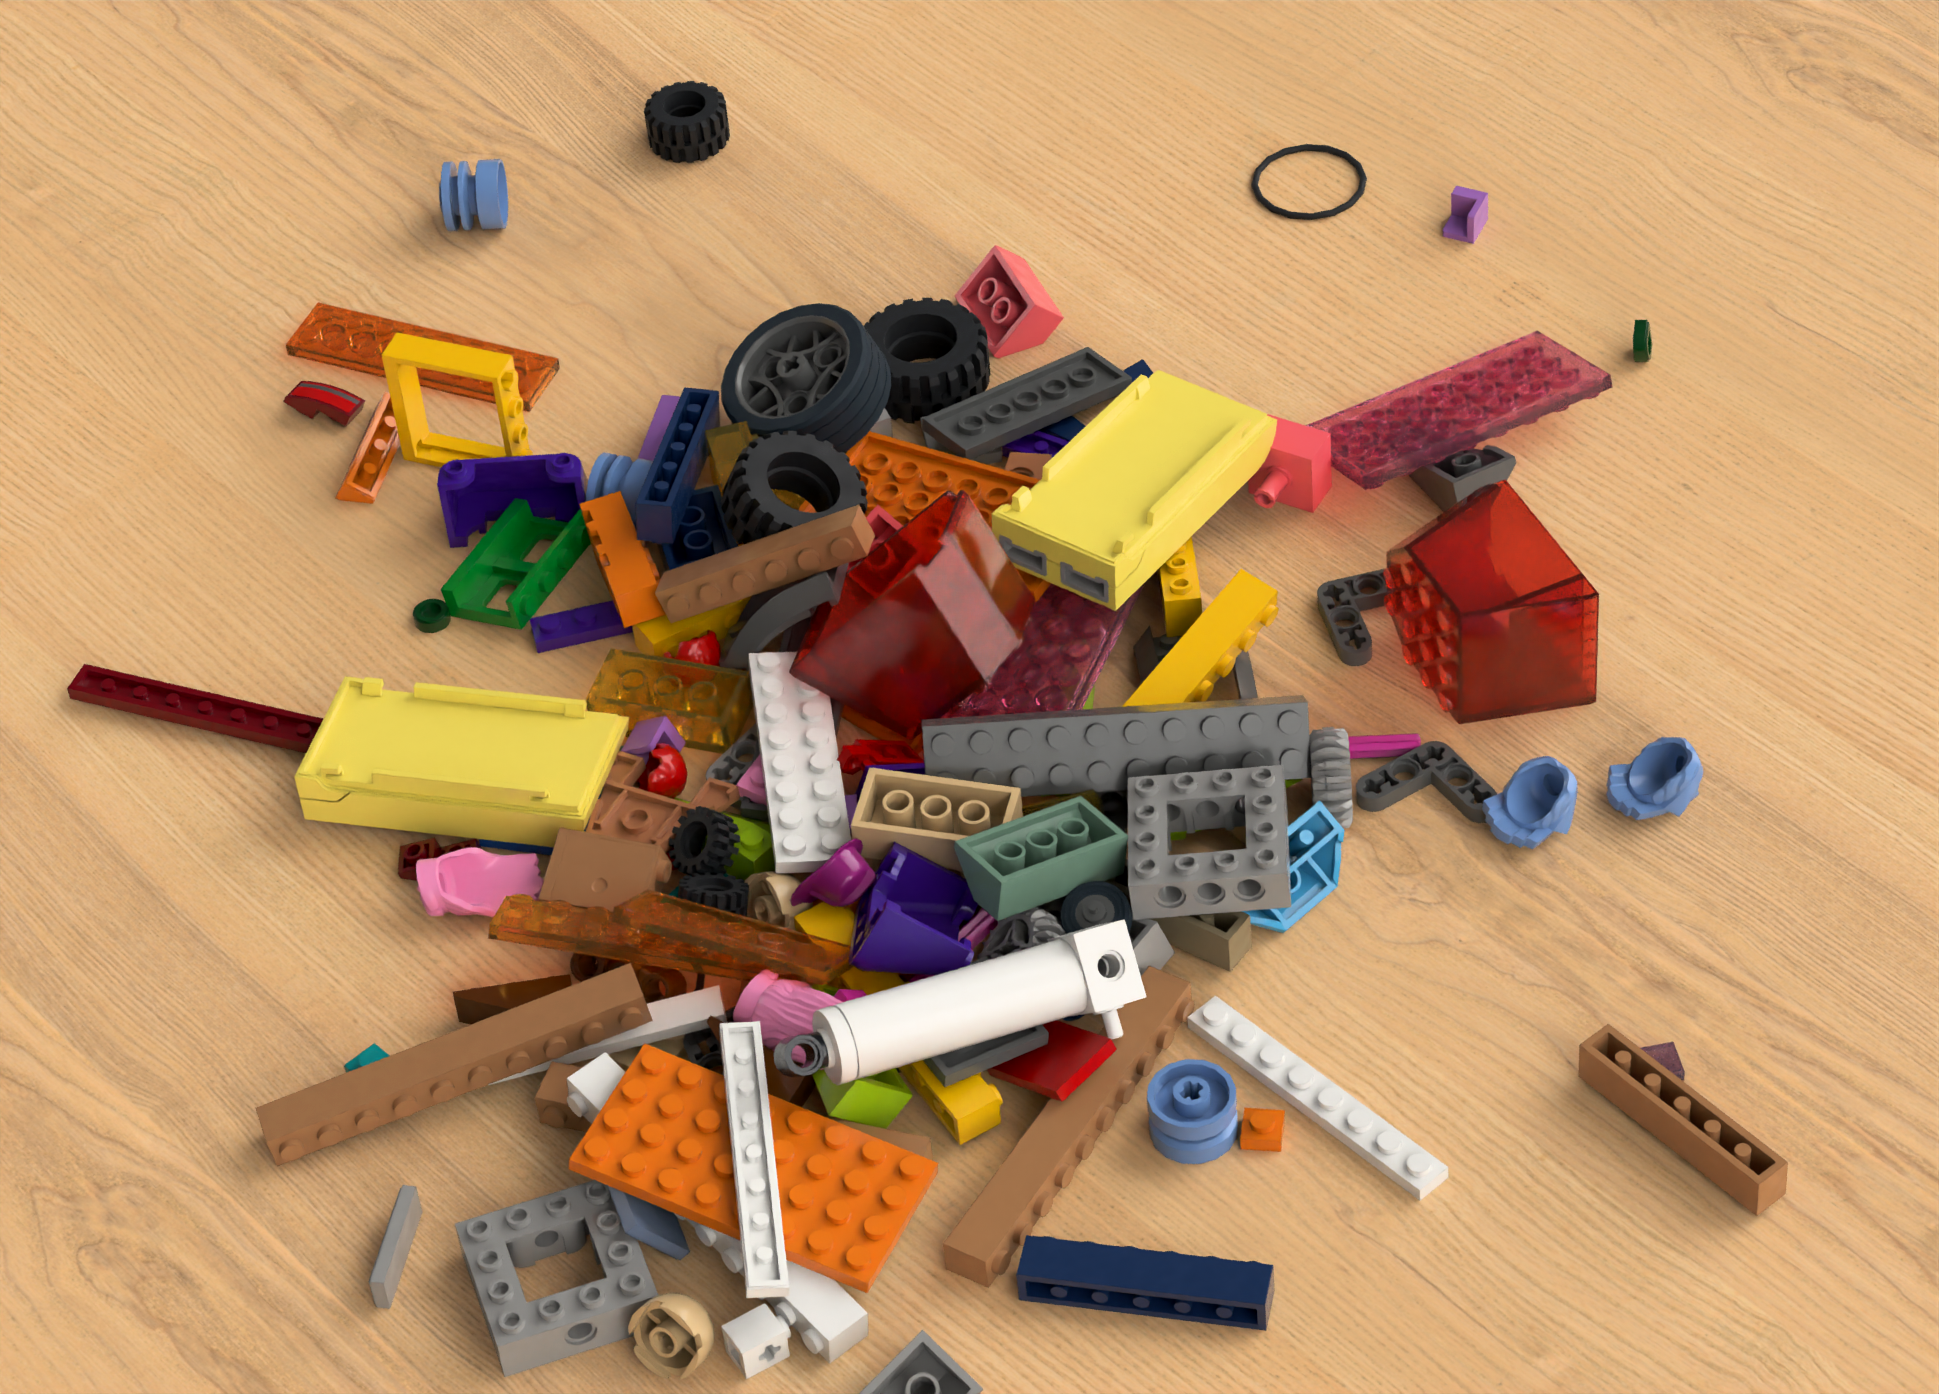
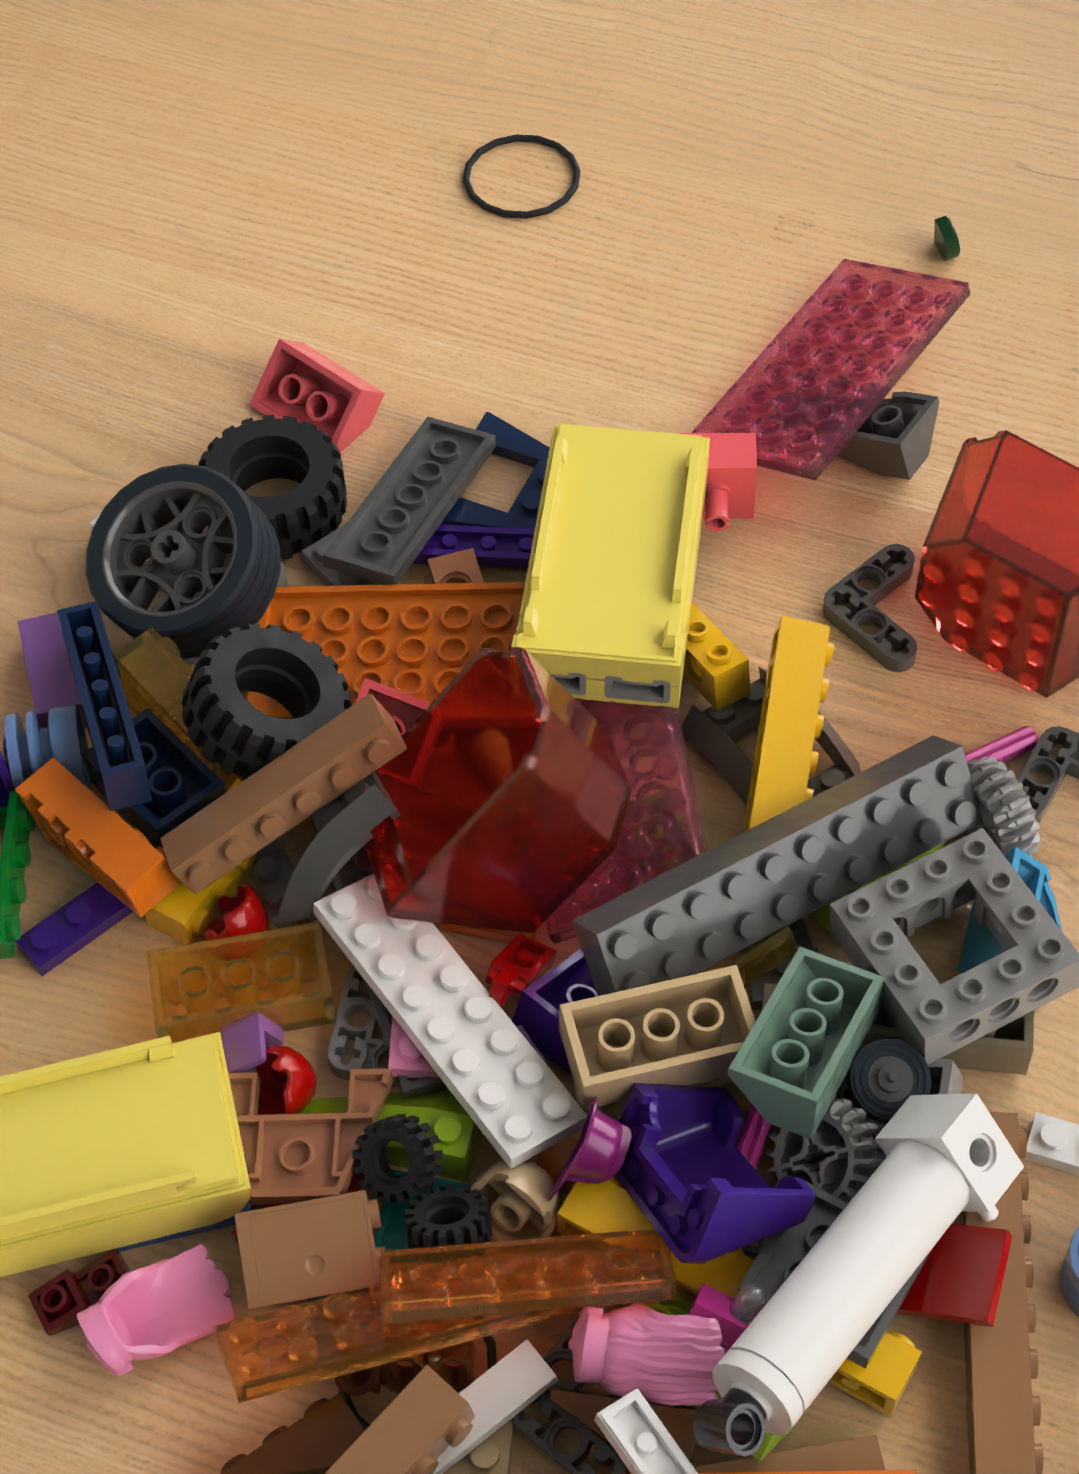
camera: 30 degrees left, 10 degrees up
(1468, 214) = (696, 163): medium lavender panel -> none

